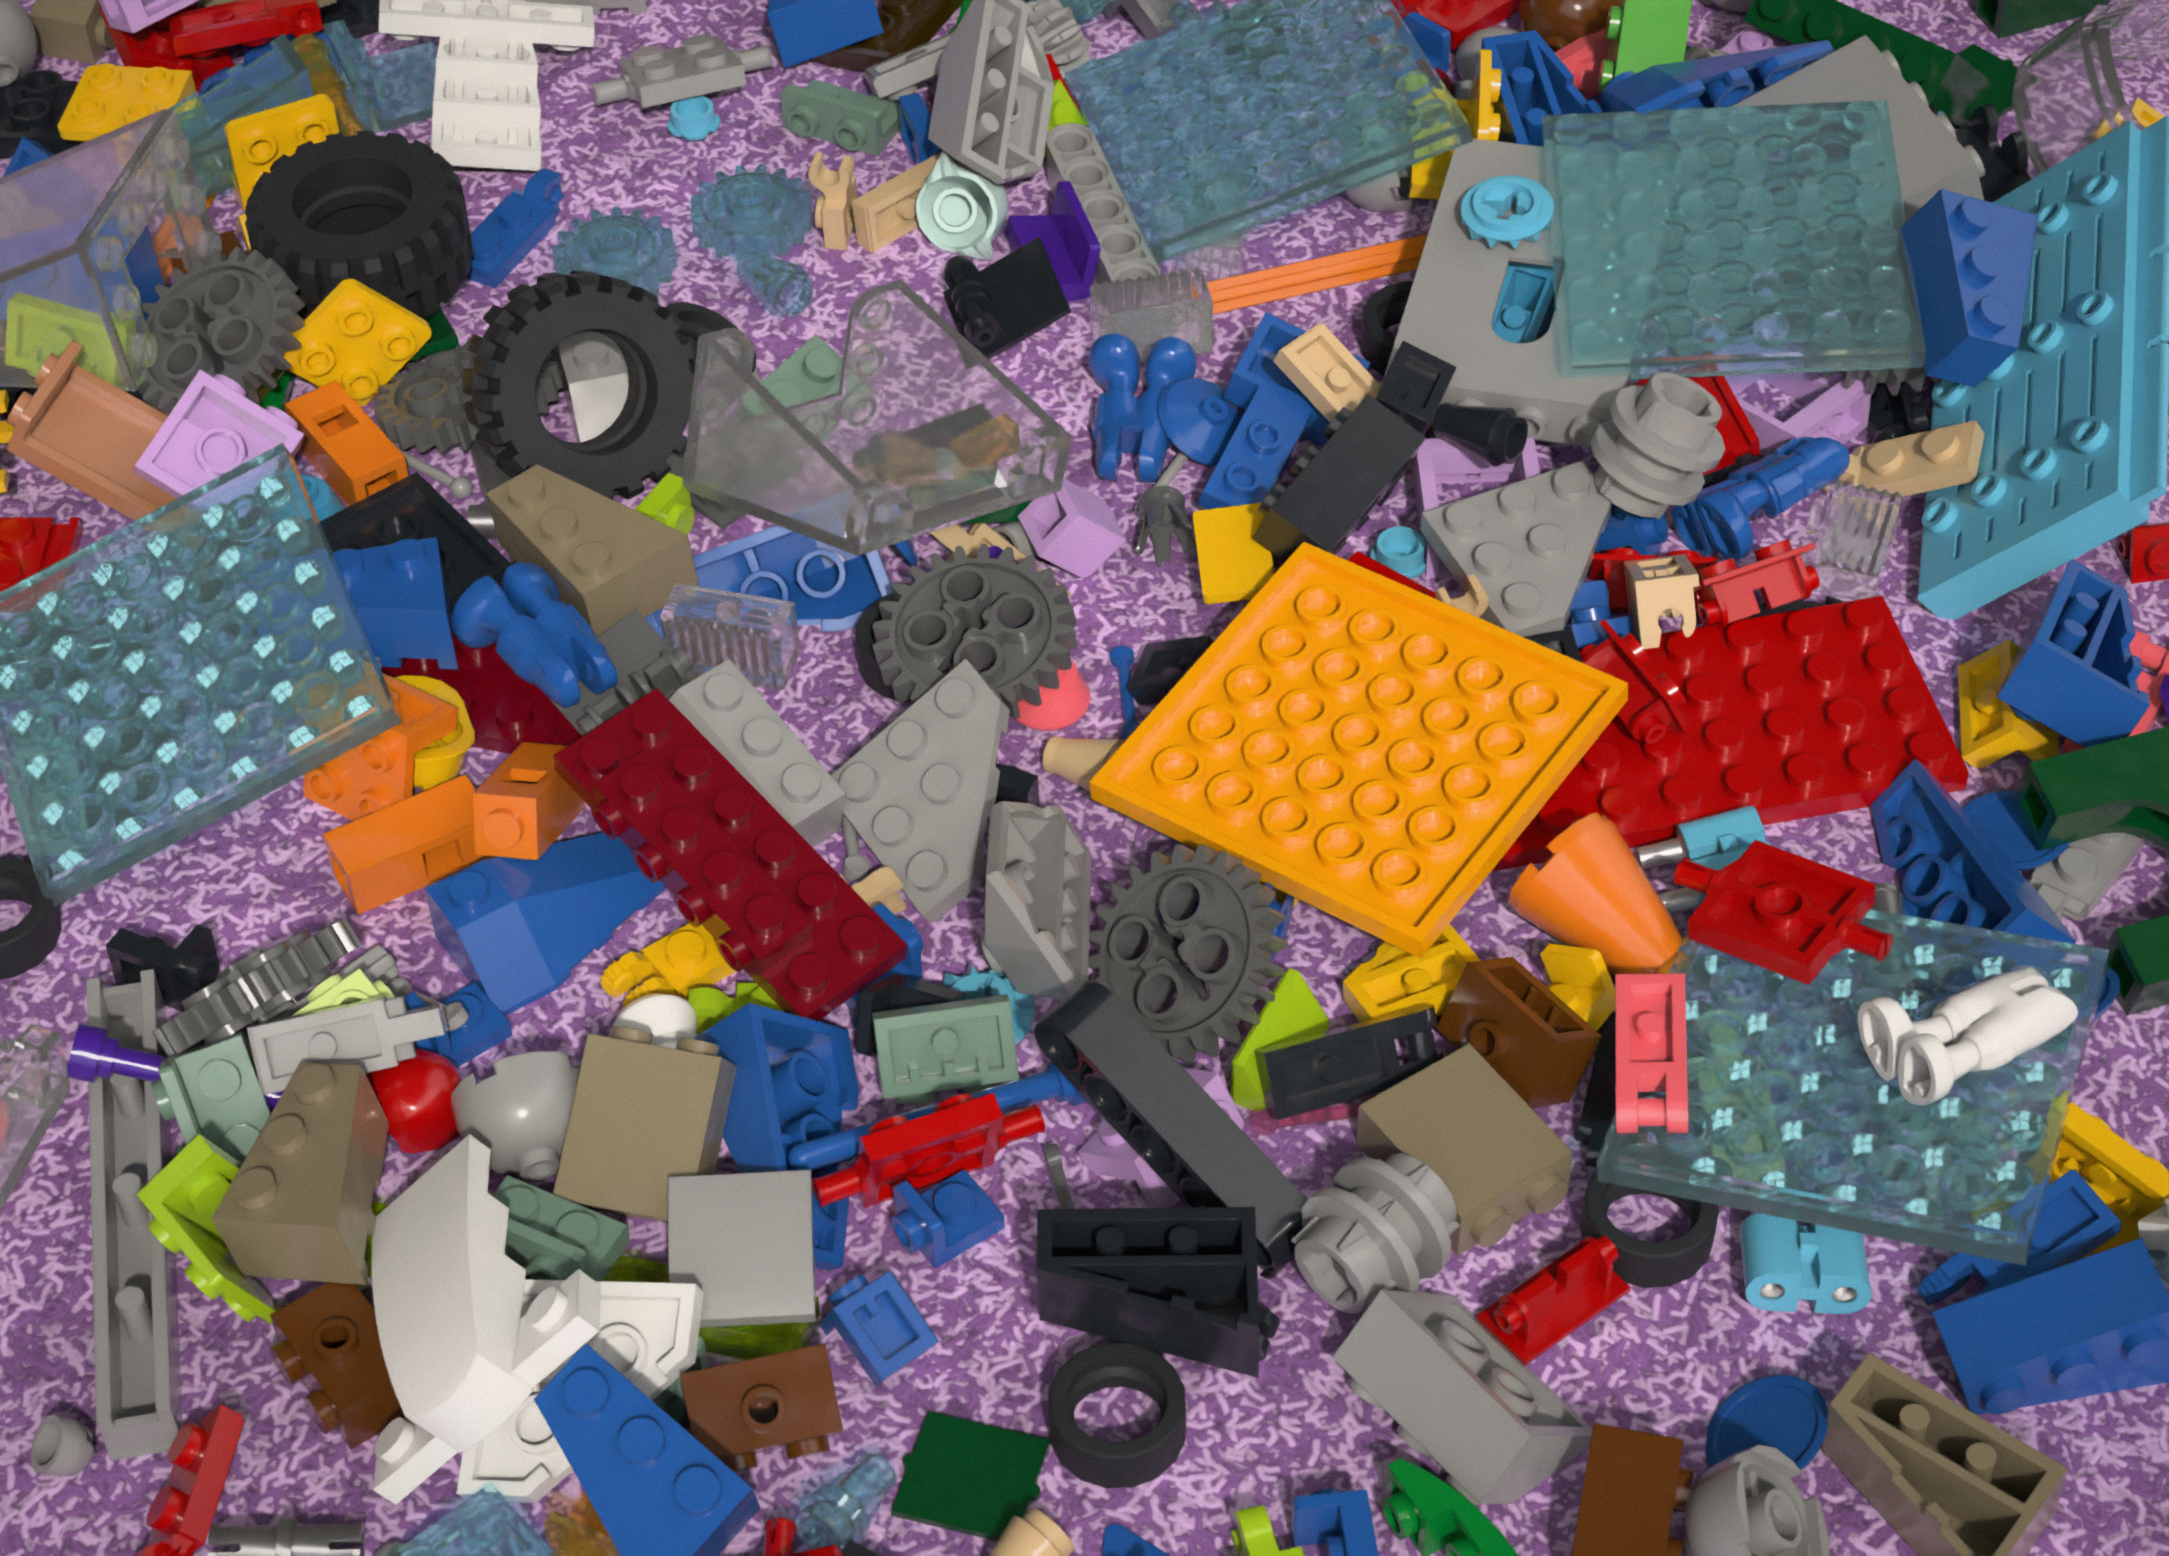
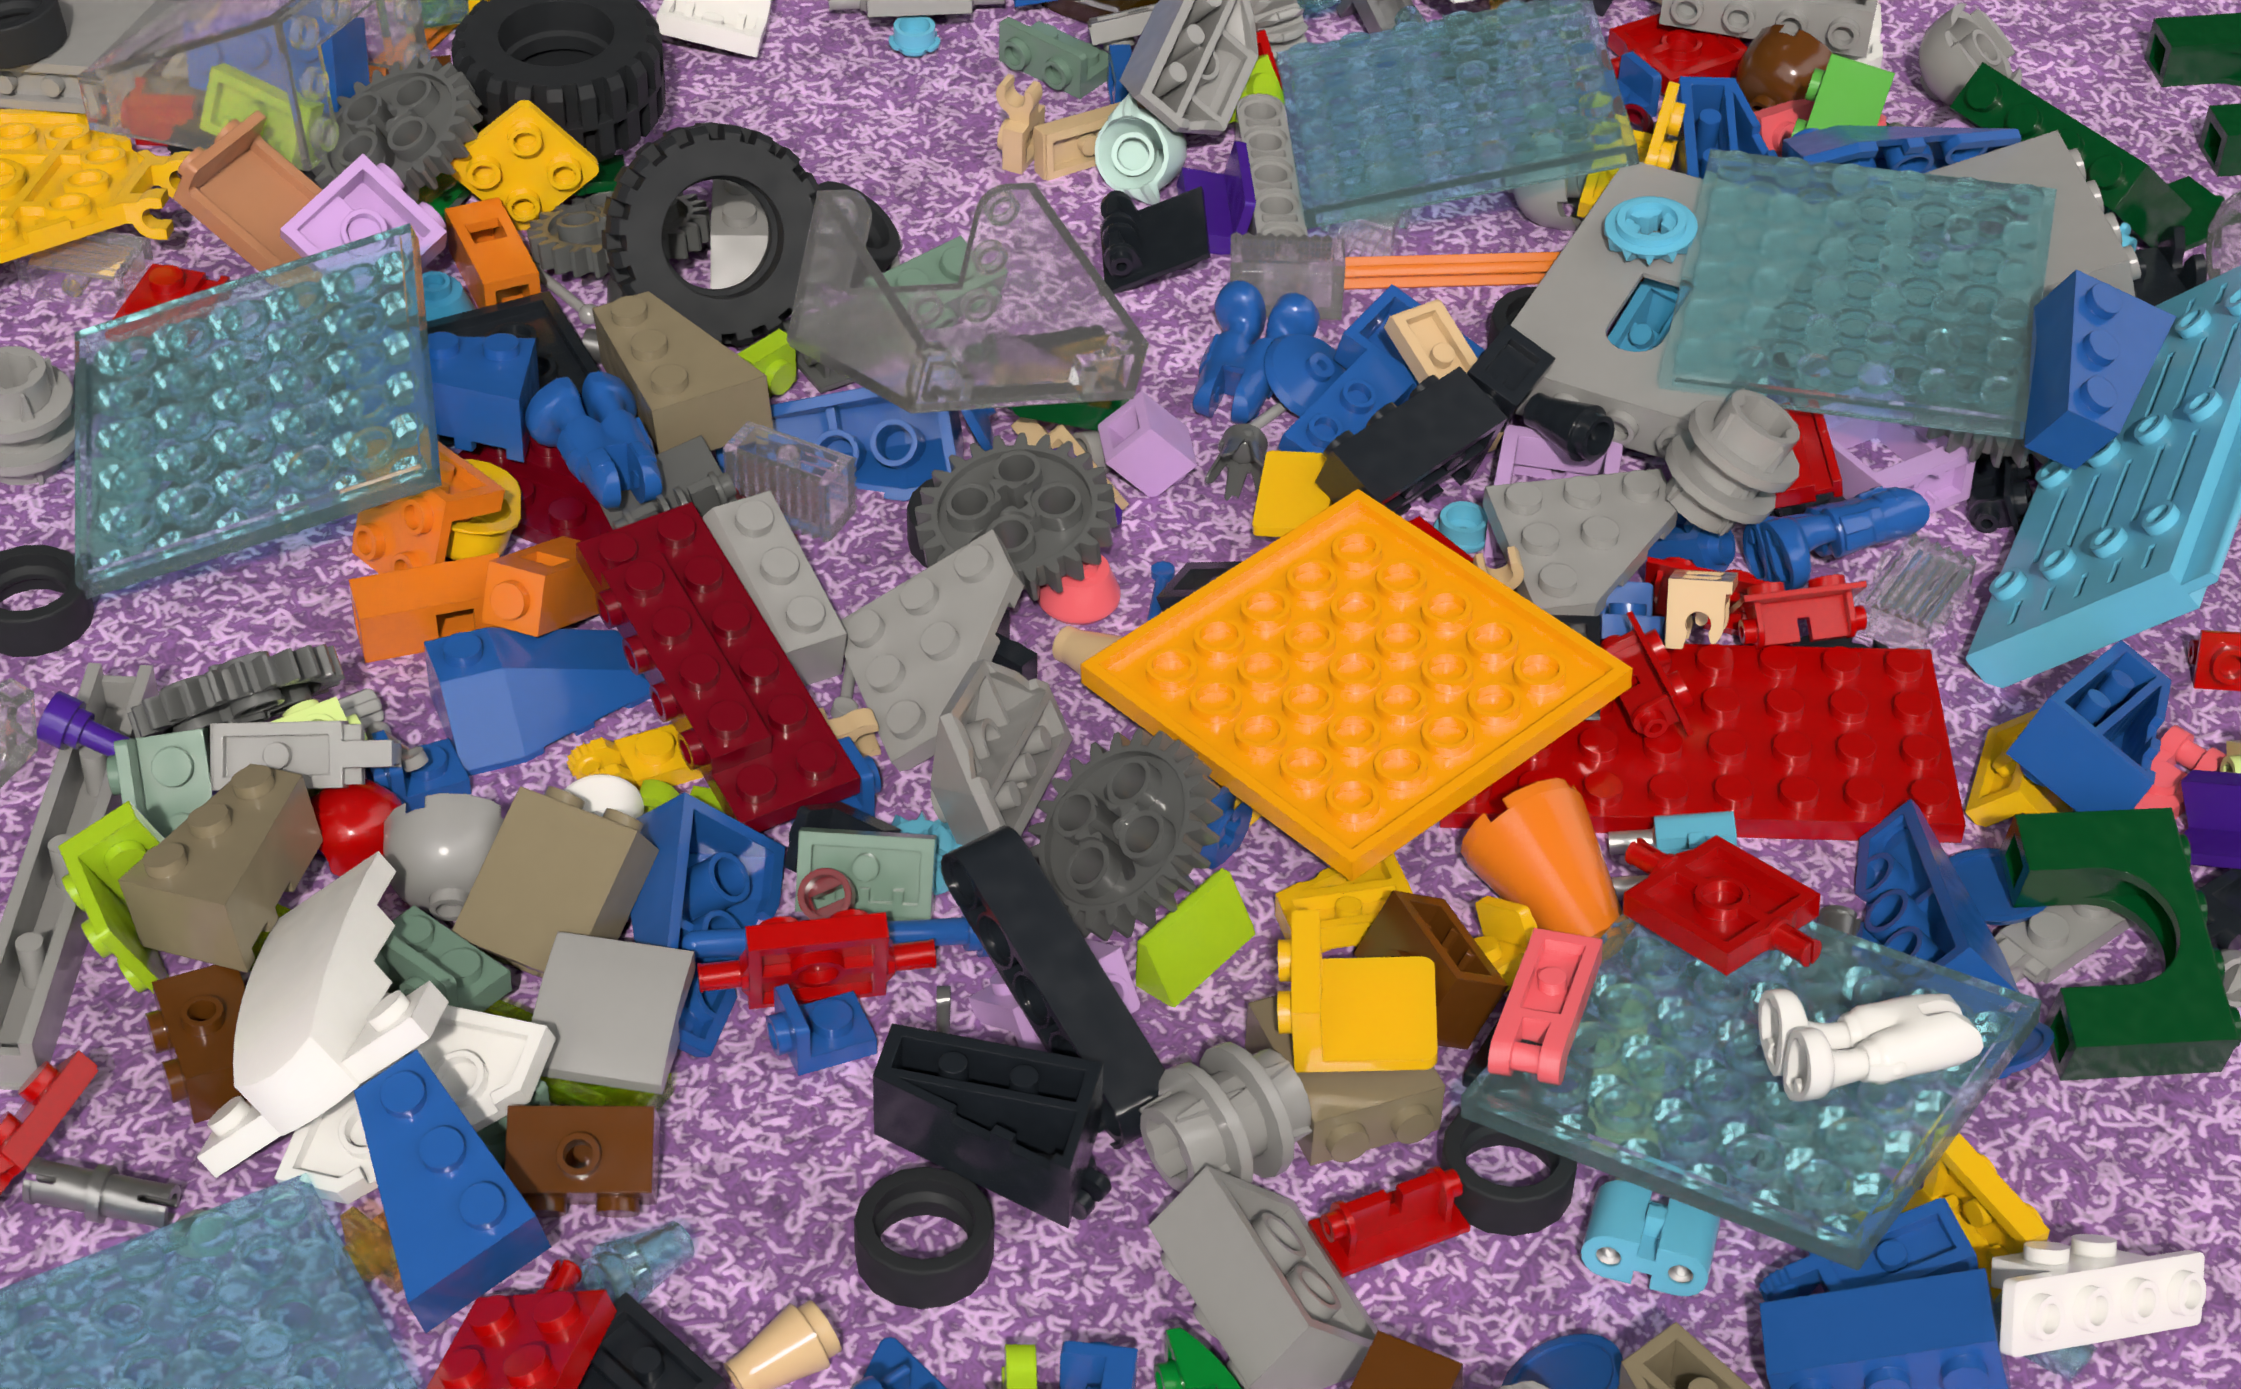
camera: 10 degrees right, 5 degrees down
(178, 970) = (141, 648): black bracket -> none
(515, 228) = (718, 97): blue hinge -> none
(619, 248) = (812, 132): clear light blue gear -> none
(751, 213) = (939, 125): clear light blue gear -> none
(776, 283) = (943, 189): clear light blue cone -> none
(878, 1325) = (722, 1111): blue bracket -> none
(909, 1067) = (822, 883): none -> dark red hinge
(969, 1476) = (765, 1264): dark green piece -> none
(1265, 1125) = (1162, 1008): clear pink hinge -> none
(1346, 1061) = (1233, 964): black plate -> none
(1471, 1092) = (1354, 1009): none -> yellow bracket
(1918, 460) = (2000, 530): tan hinge -> none

